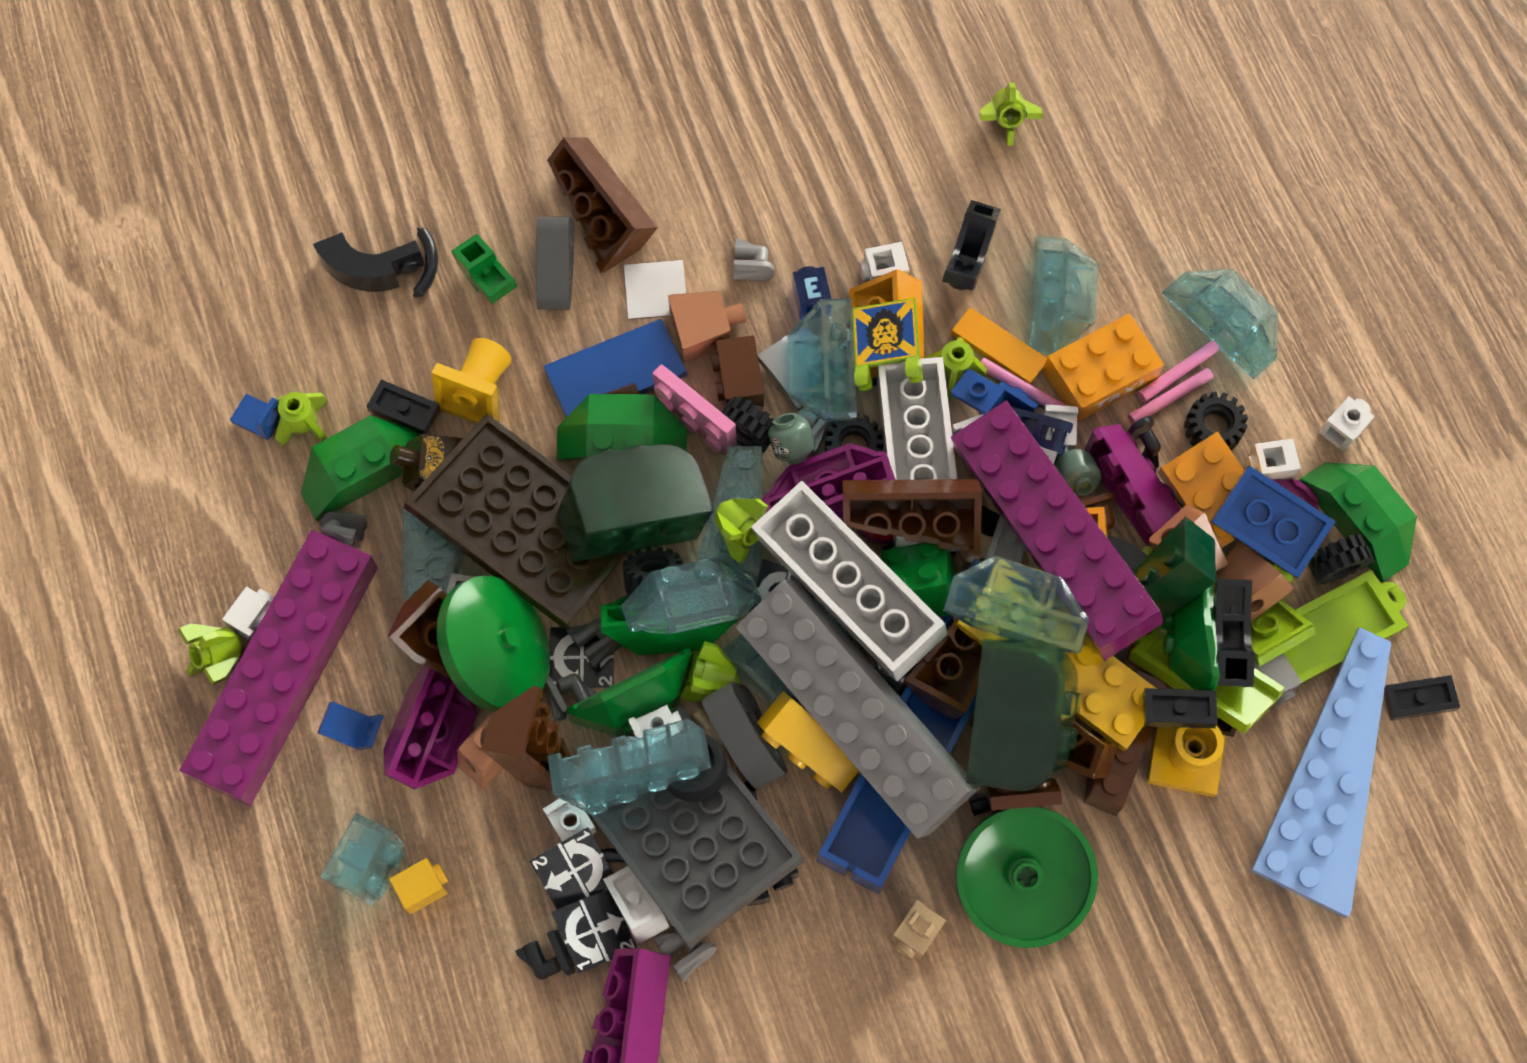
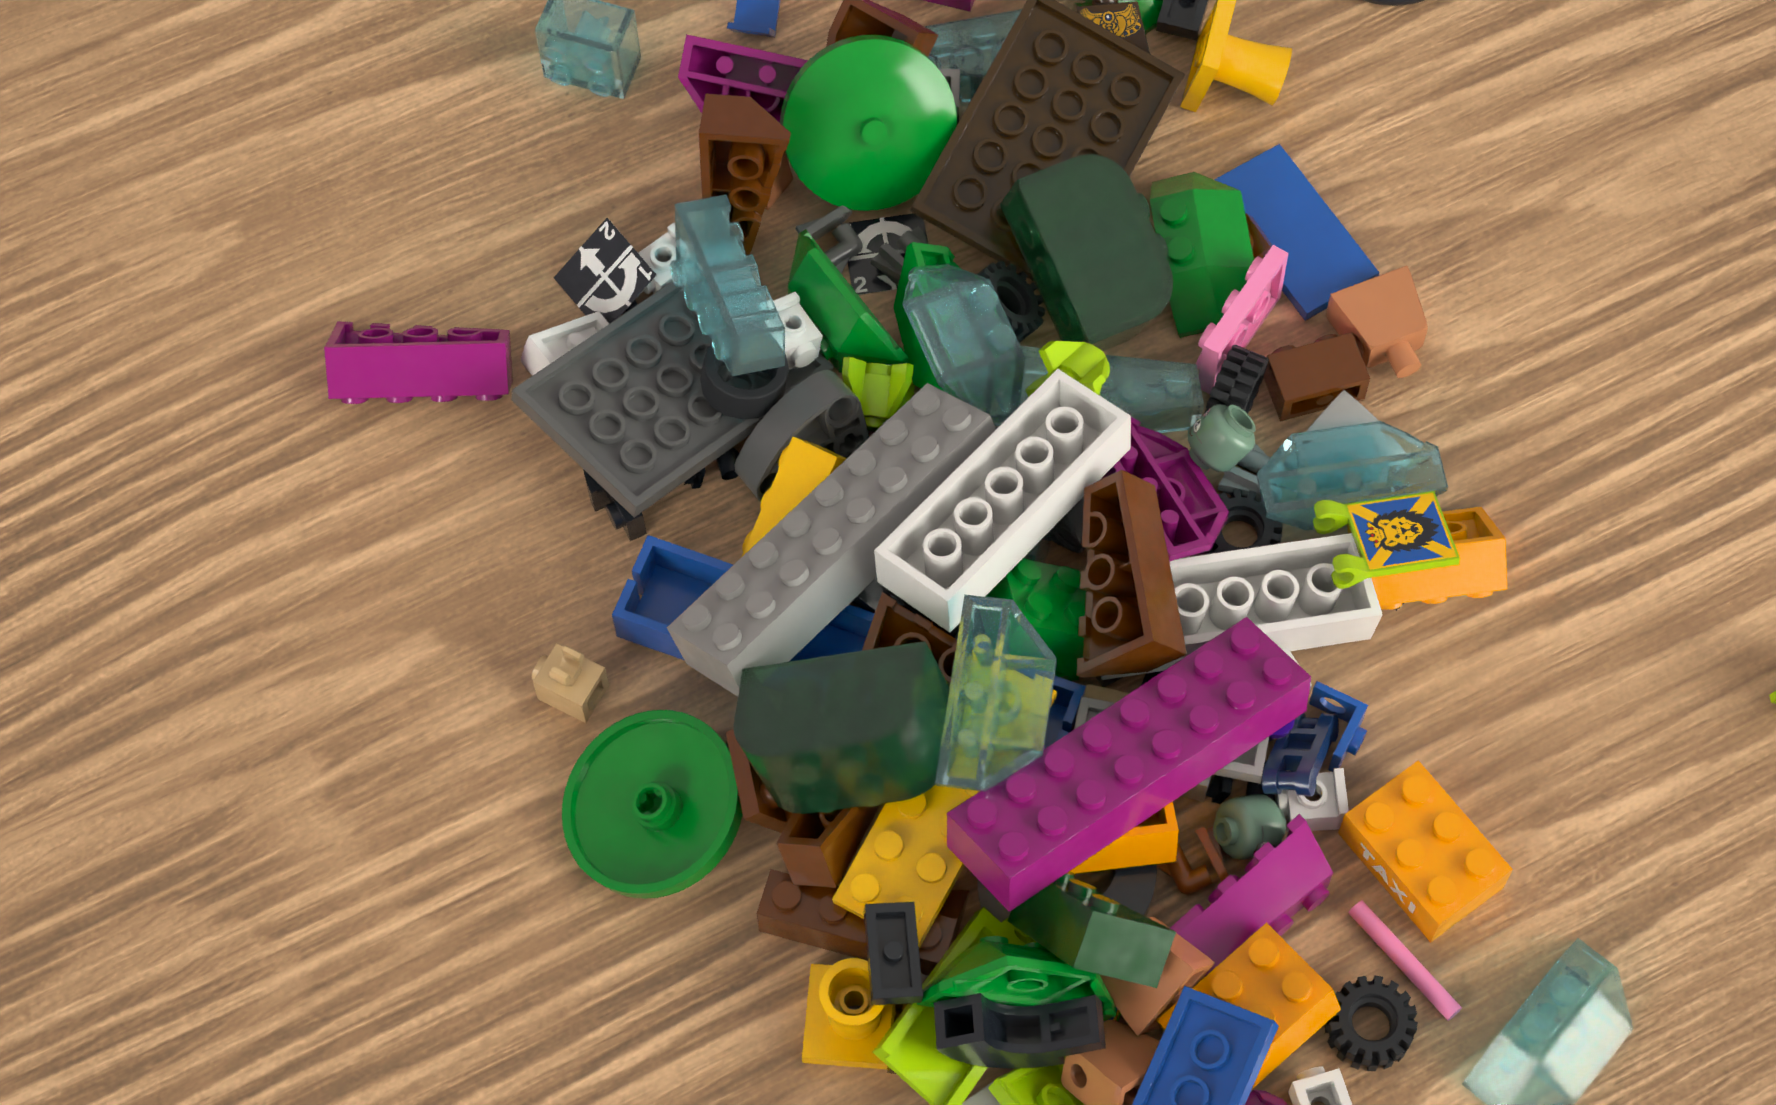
camera: 85 degrees right, 5 degrees down
(419, 885) = (568, 114): yellow brick -> none
(483, 269) = (1402, 50): green brick -> none
(542, 968) = (506, 279): black piece -> none
(554, 262) = (1431, 126): dark grey beam -> none
(593, 930) = (531, 303): black sticker -> none
(601, 202) = (1537, 171): reddish brown wedge -> none
(650, 285) = (1435, 262): white sticker -> none
(698, 954) = (515, 432): light grey piece -> none
(756, 269) = (1484, 385): light grey piece -> none
(808, 287) = (1464, 449): clear blue brick -> none
(885, 258) = (1532, 530): white brick -> none
(957, 359) = (1388, 651): lime brick -> none
(971, 246) = (1576, 655): black arch -> none
(978, 392) = (1340, 680): blue bracket -> none
(999, 346) = (1434, 710): light orange tile -> none
(1014, 381) = (1379, 746): bright pink bar -> none
(1061, 294) = (1538, 783): clear light blue wedge -> none
(1142, 430) = (1332, 911): black piece -> none
(1178, 371) = (1448, 968): bright pink bar -> none

